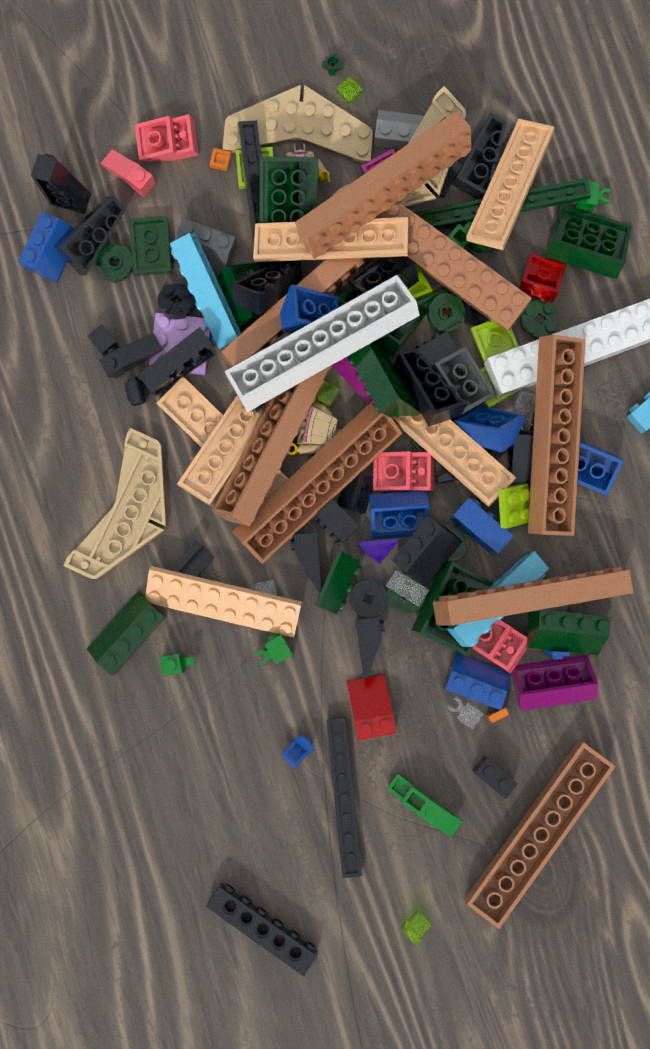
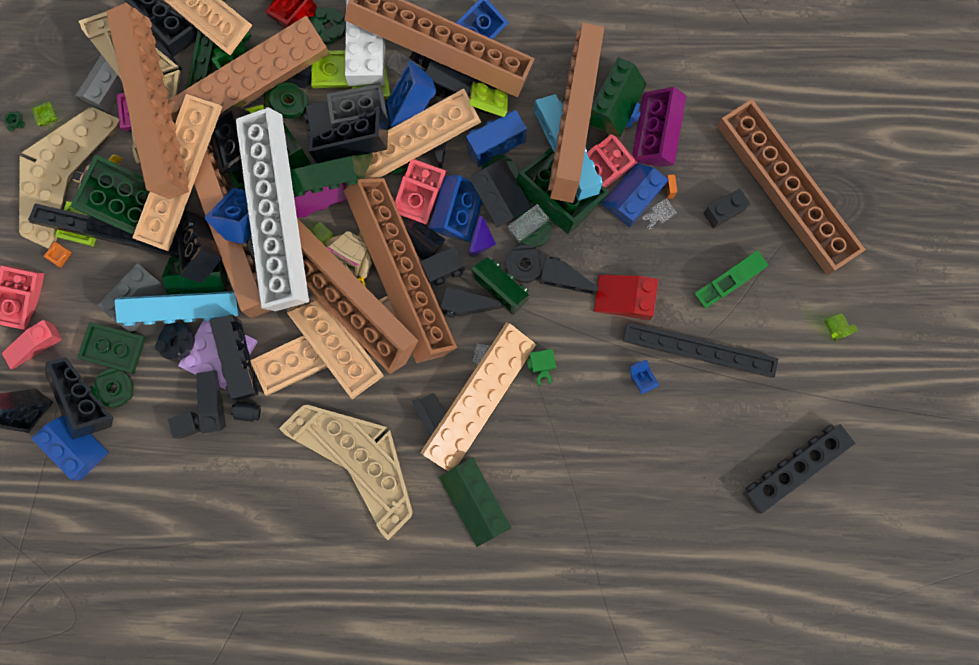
camera: 70 degrees left, 5 degrees down
(175, 664) = (521, 464): green brick -> none

